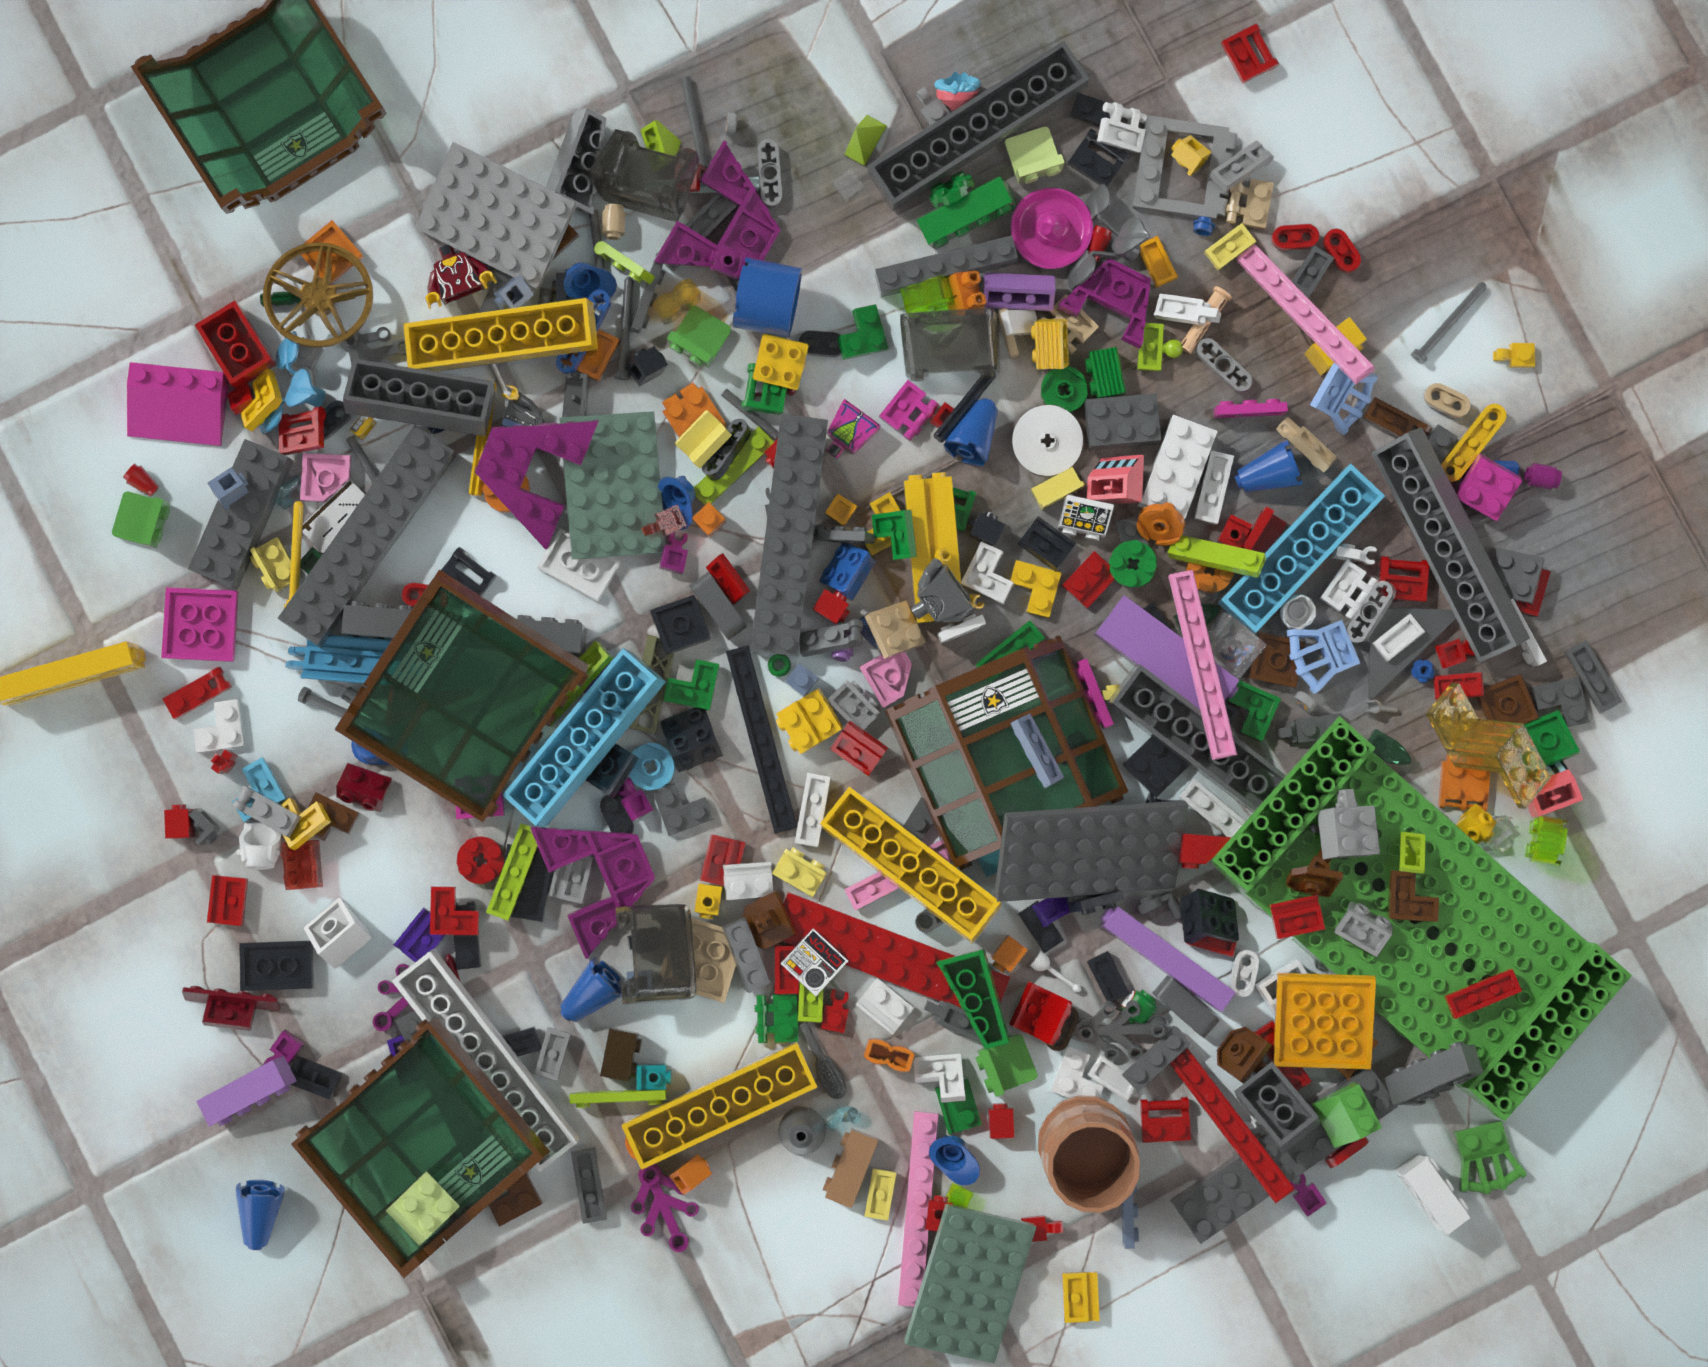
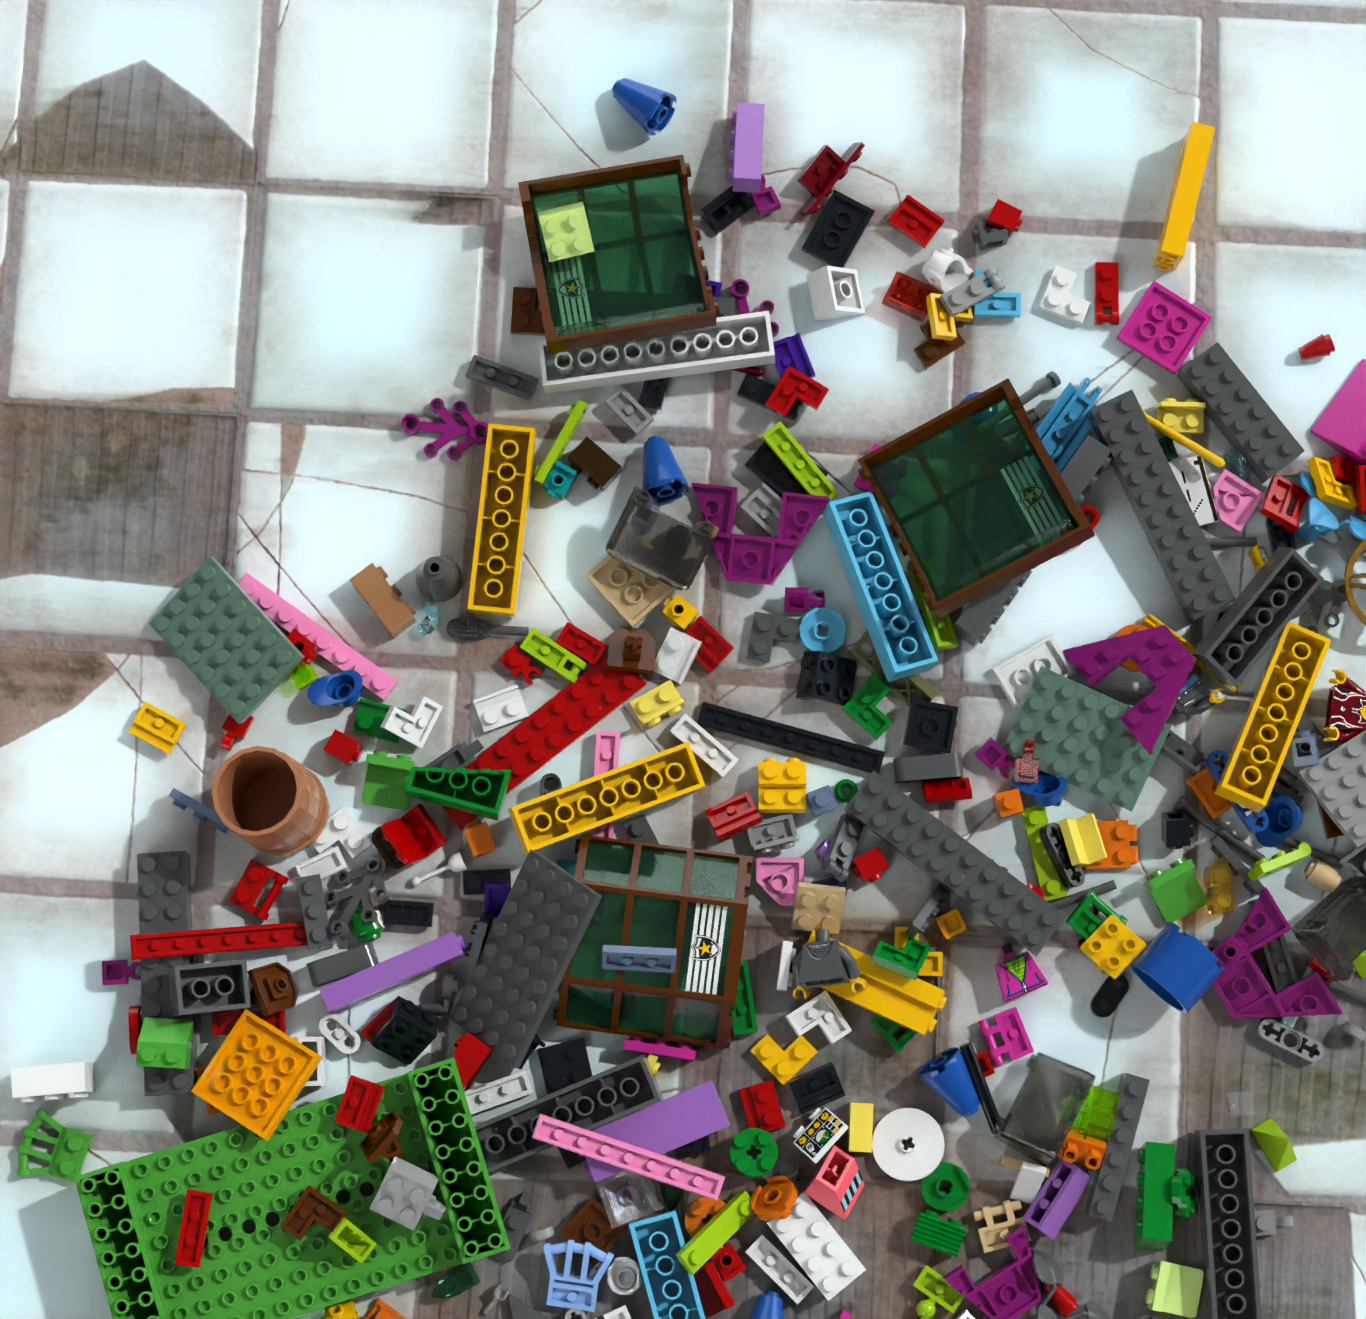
camera: 120 degrees right, 5 degrees down
(141, 519) = (1283, 329): bright green bracket -> none
(223, 762) = (1034, 281): red plate -> none
(228, 487) = (1268, 412): sand blue brick -> none
(363, 787) = (946, 383): dark red bracket -> none
(450, 569) = (1074, 561): black plate -> none
(468, 867) = (840, 442): red plate -> none
(613, 770) = (838, 595): black plate -> none
(617, 815) = (797, 578): black plate -> none
(691, 1174) = (460, 465): orange brick -> none
(746, 955) = (614, 616): dark grey plate -> none
(785, 1018) = (542, 619): green plate -> none
(814, 962) = (573, 669): tile -> none
(848, 570) = (894, 898): blue bracket -> none
(870, 334) = (1090, 1040): green plate -> none
(880, 1194) = (346, 611): light yellow plate -> none
(895, 1056) = (463, 682): orange brick -> none
(957, 89) = (1274, 1254): hair -> none
(986, 528) = (860, 1041): black brick -> none
(1050, 343) = (993, 1198): yellow brick -> none
(1051, 227) = (1099, 1264): dark pink hat -> none
(1122, 422) = (886, 1221): dark grey brick -> none
(1260, 709) = (560, 1190): green plate -> none
(1364, 928) = (313, 1158): light grey bracket -> none
(1433, 1075) = (151, 1141): dark grey wedge -> none

